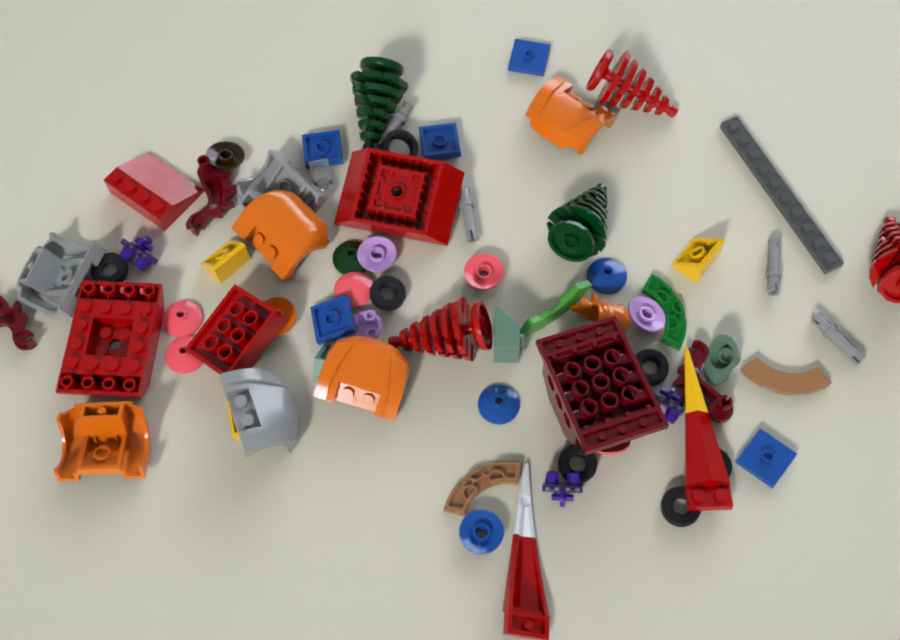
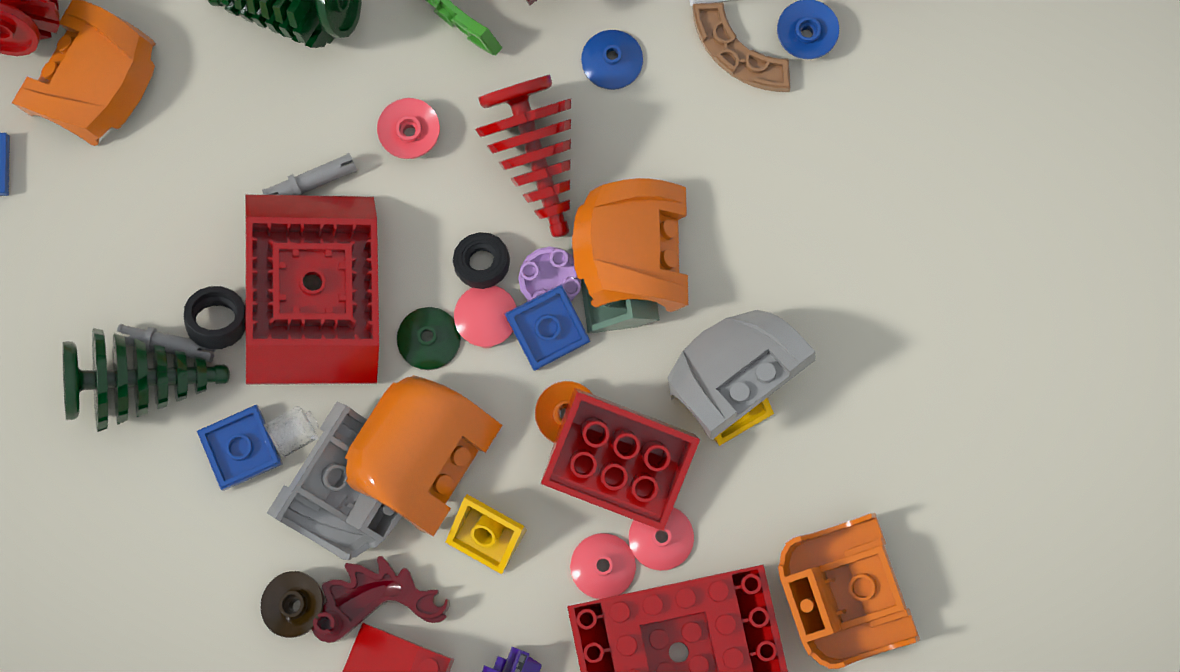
camera: 105 degrees left, 15 degrees up
(375, 247) = (414, 281): lavender dish -> none
(440, 141) = (182, 261): blue plate -> none
(507, 338) = (515, 60): sand green slope -> none

